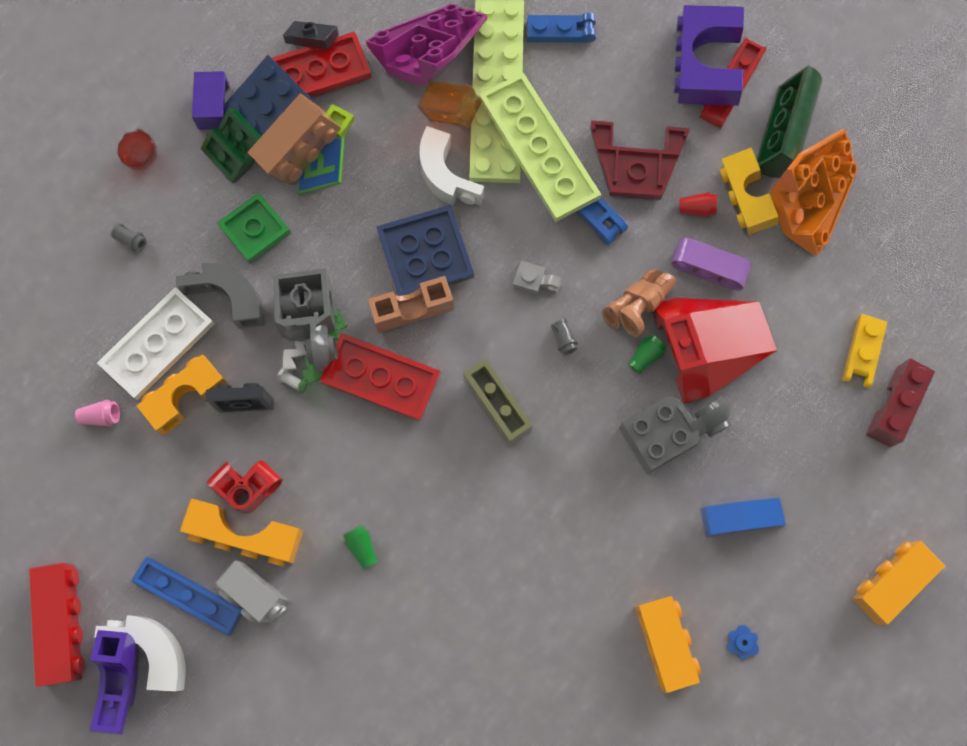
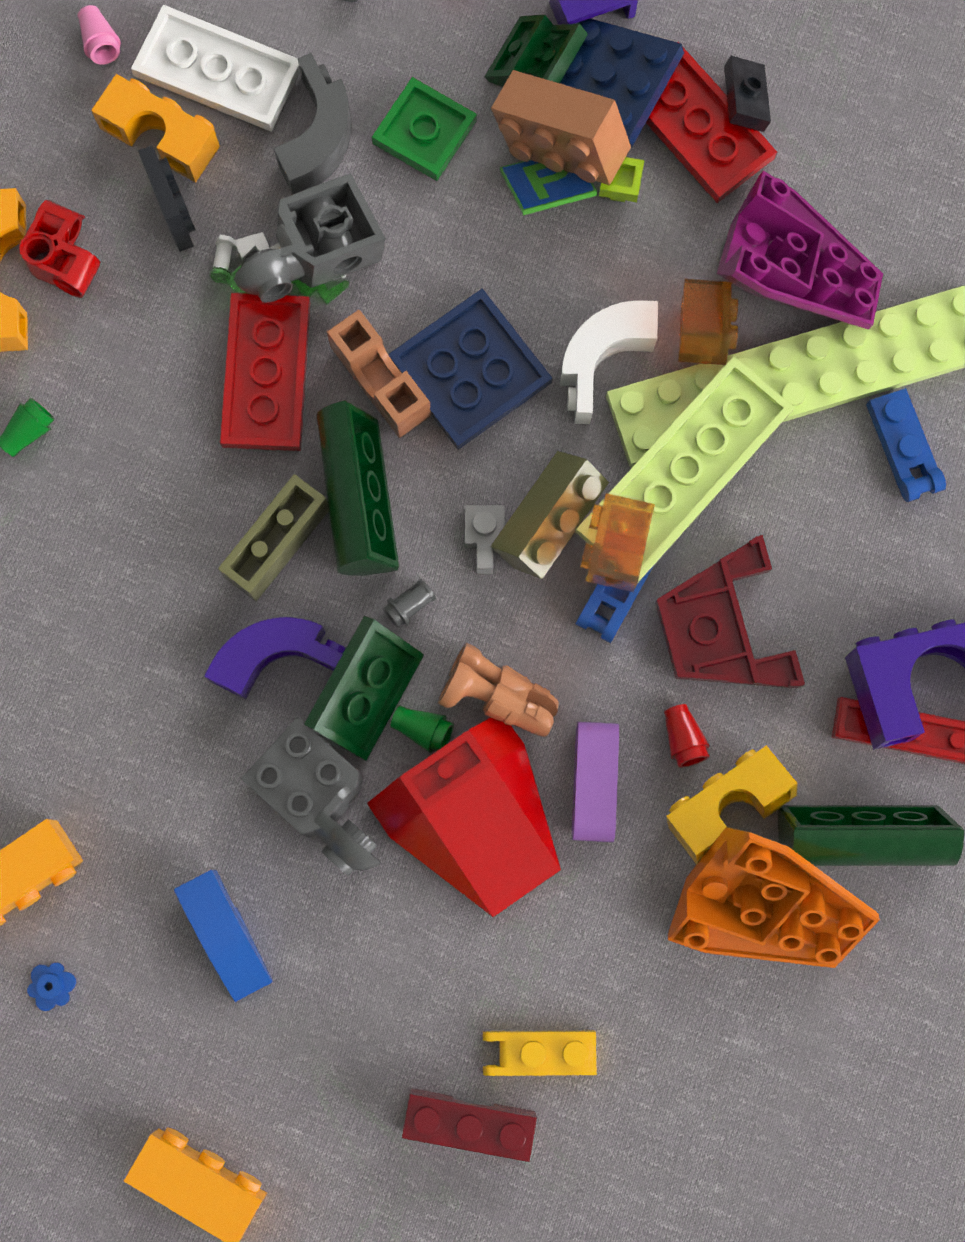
camera: 70 degrees right, 5 degrees up
(481, 344) = (356, 490): none -> dark green brick
(539, 233) = (550, 514): none -> olive brick
(564, 442) = (264, 642): none -> dark purple arch
(578, 191) = (618, 543): none -> clear orange brick
(614, 378) = (364, 688): none -> dark green plate

